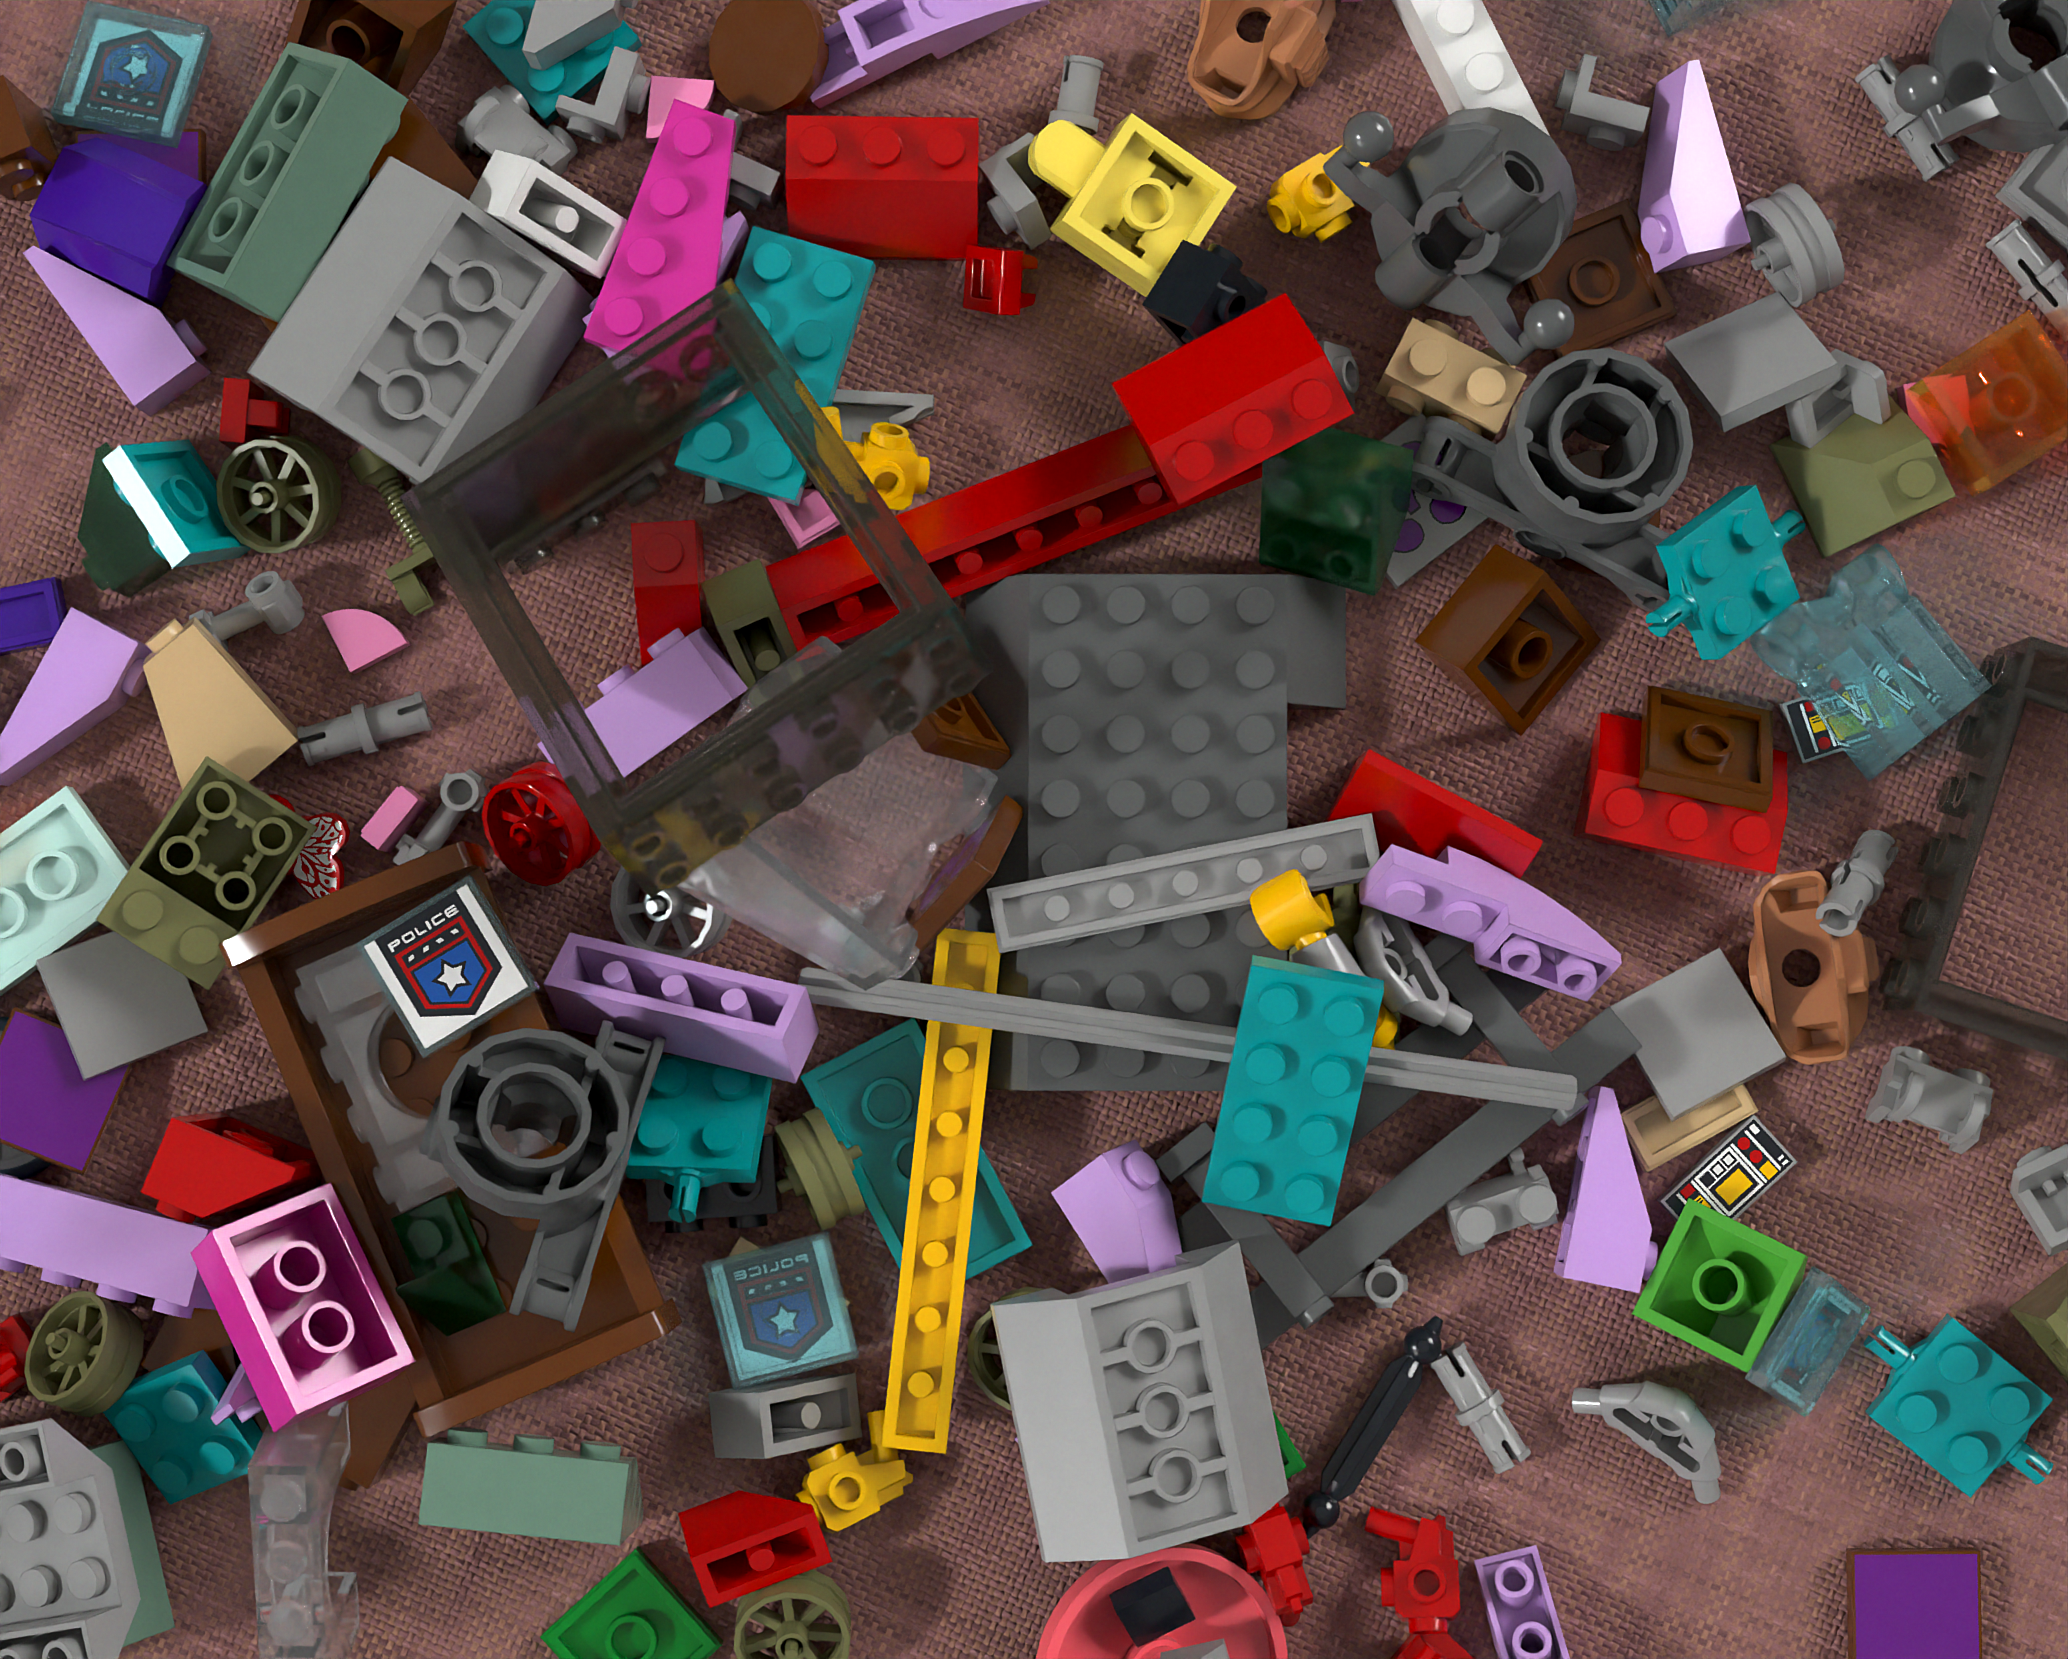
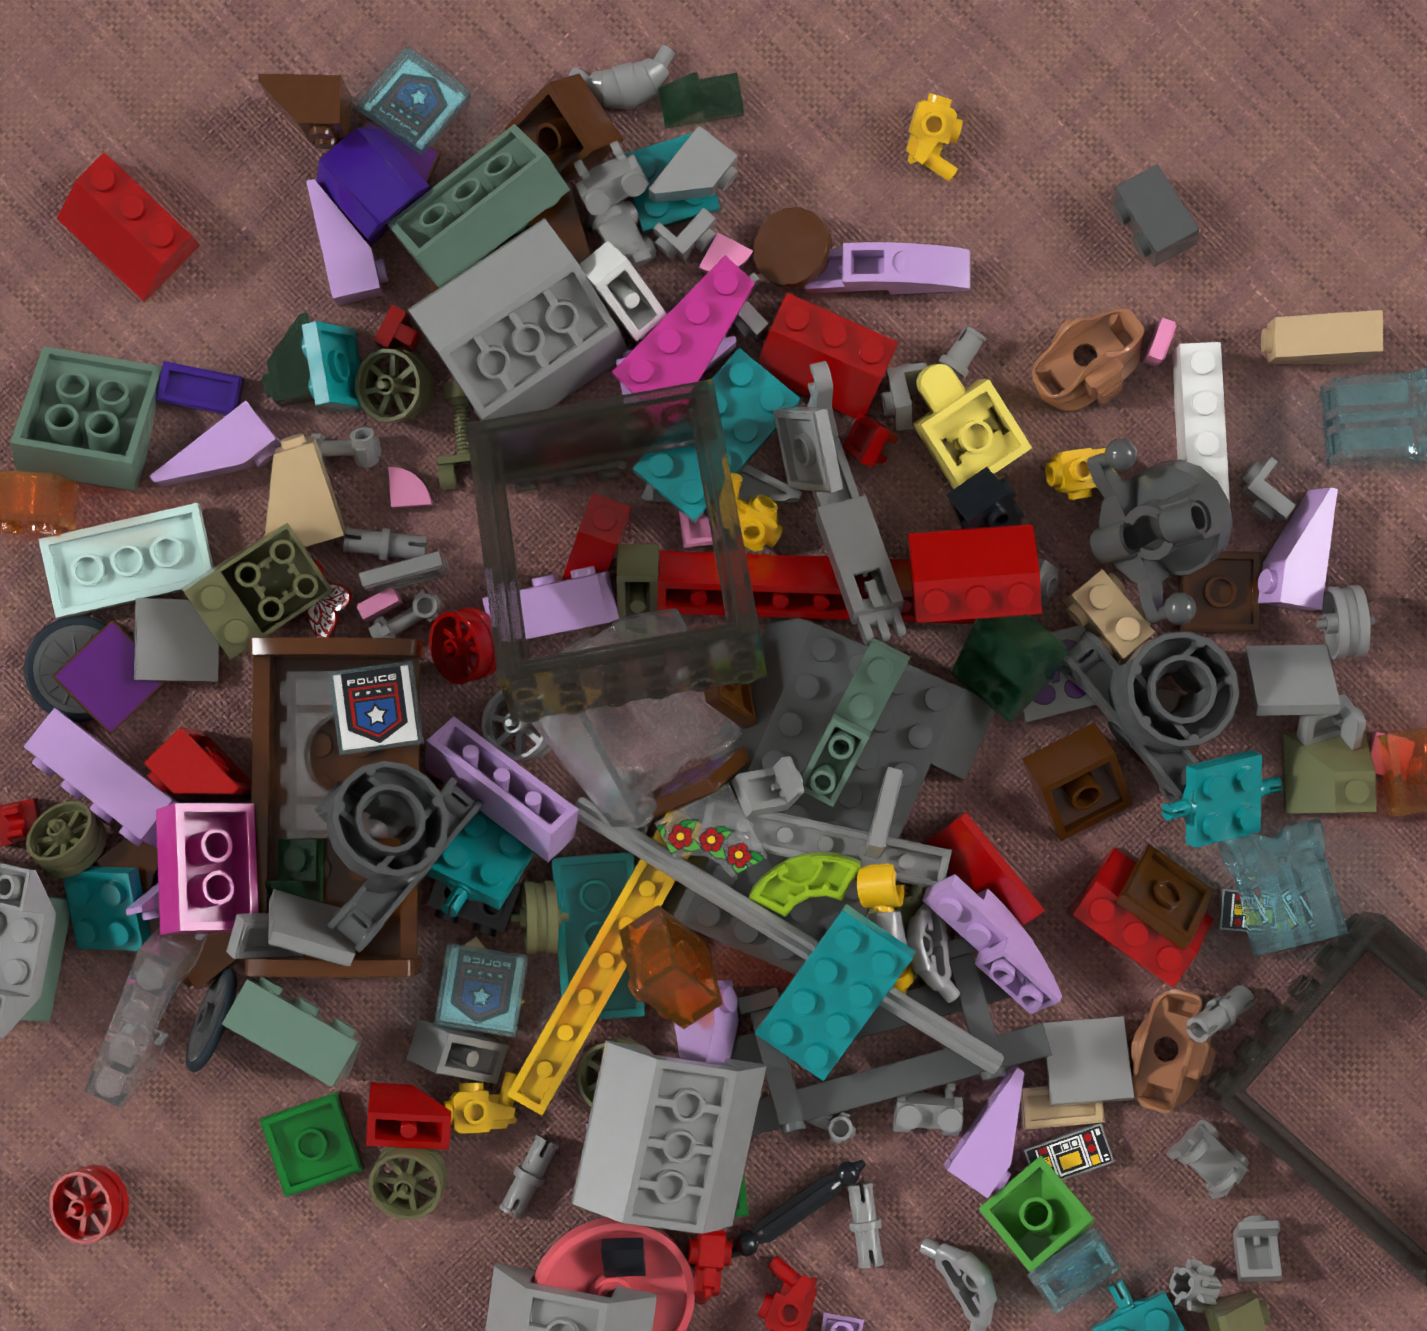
camera: 20 degrees right, 0 degrees up
(405, 1539) = (208, 1022): none -> wheel
(410, 755) = (405, 573): none -> light grey tile
(434, 1363) = (250, 938): none -> light grey tile
(463, 64) = (610, 181): none -> light grey piece
(475, 1333) = (302, 928): none -> light grey tile
(914, 324) = (808, 448): none -> light grey tile
(966, 1549) = (529, 1176): none -> light grey pin
(1012, 401) = (854, 538): none -> light grey hinge
(1016, 931) = (715, 830): none -> tile
(1037, 1159) = (670, 967): none -> clear orange brick
(1069, 837) = (769, 788): none -> light grey bracket
(1149, 689) = (853, 721): none -> sand green slope
(1176, 945) = (805, 877): none -> lime tile
(1250, 801) = (884, 813): none -> light grey tile
(1990, 1289) = (1195, 1285): none -> light grey gear

